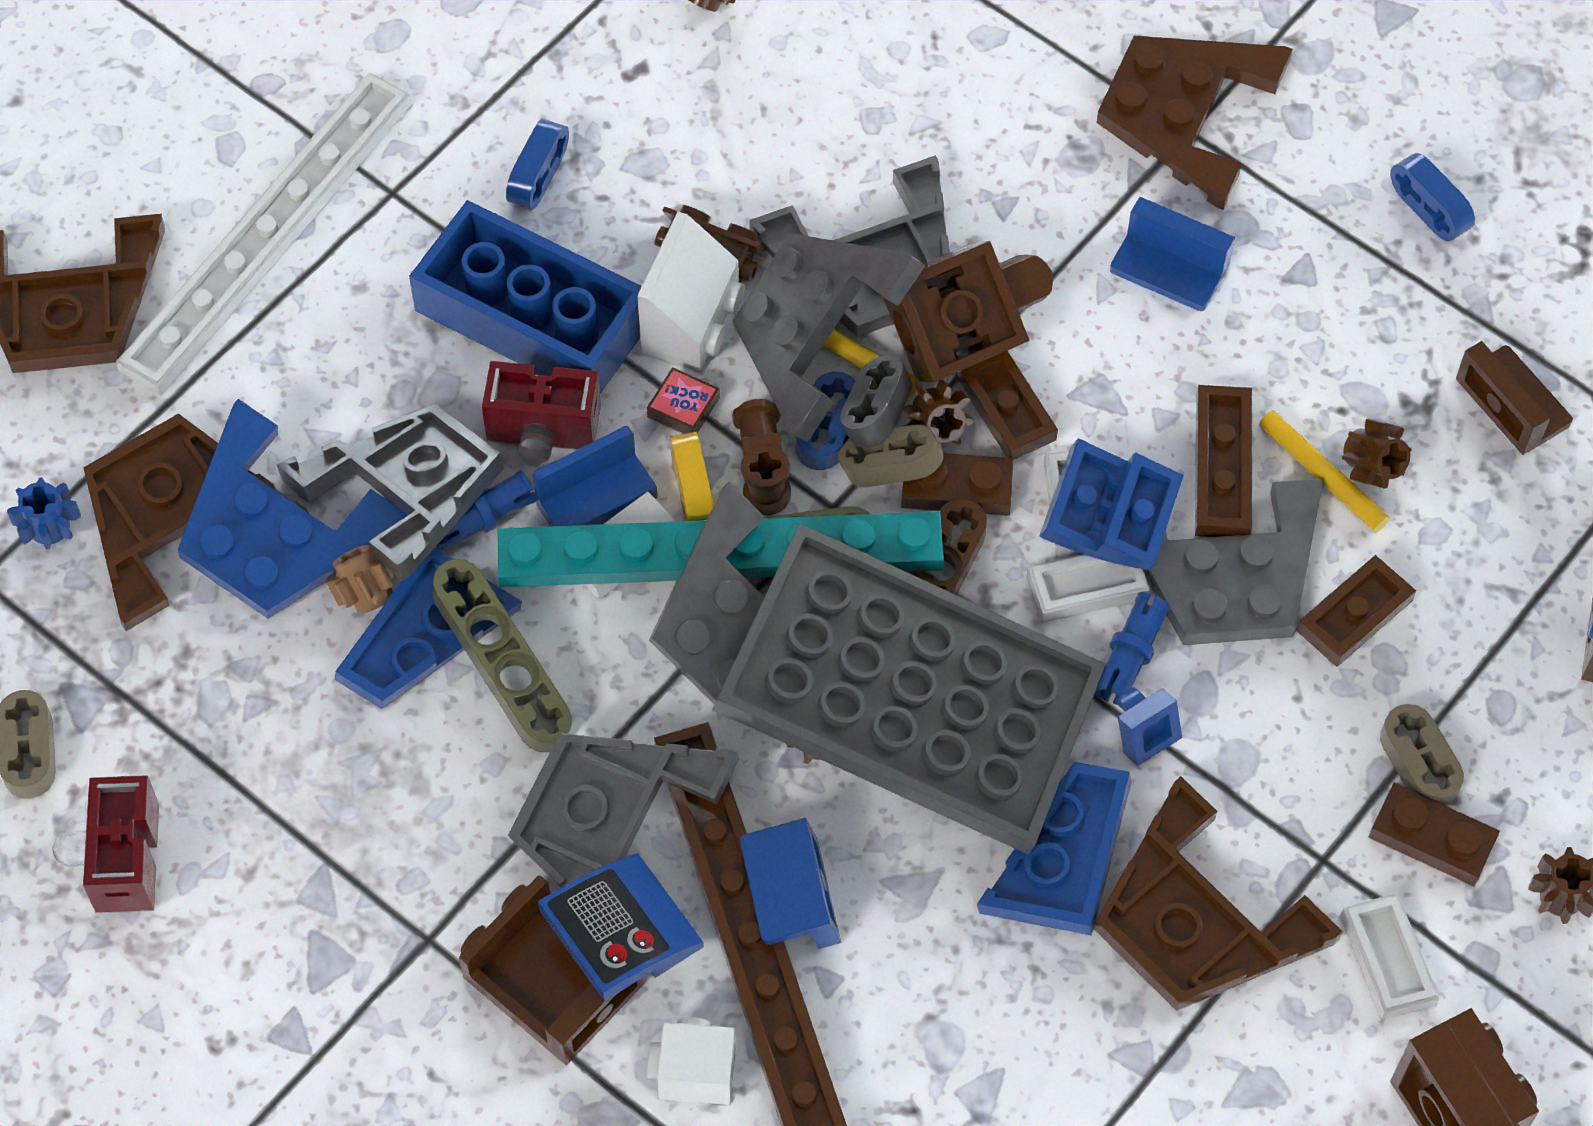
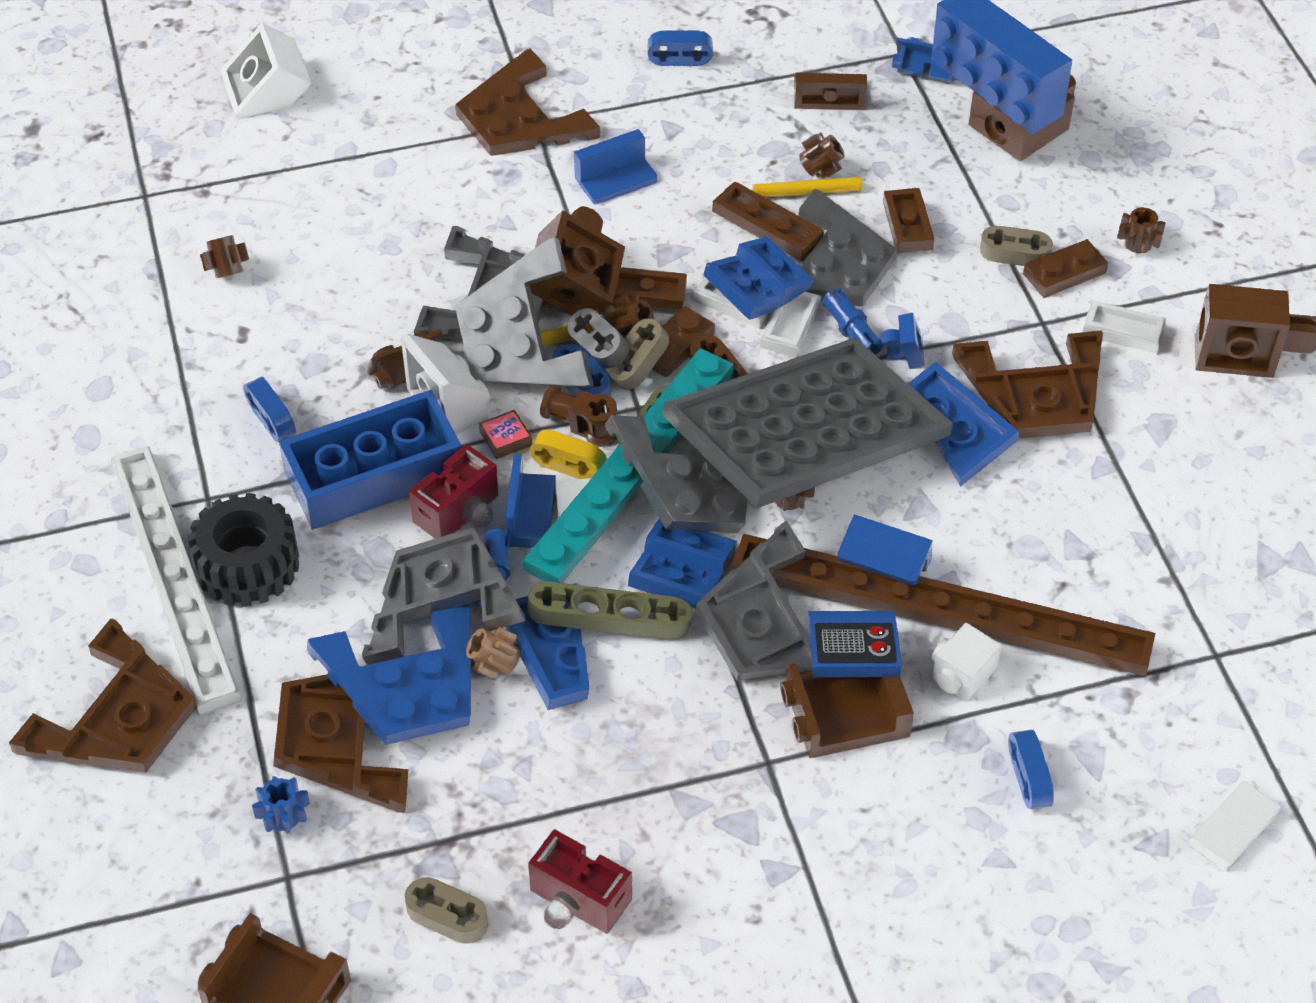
camera: 55 degrees left, 10 degrees down
(322, 233) = (240, 524): none -> black tyre
(629, 689) = (681, 563): none -> blue slope

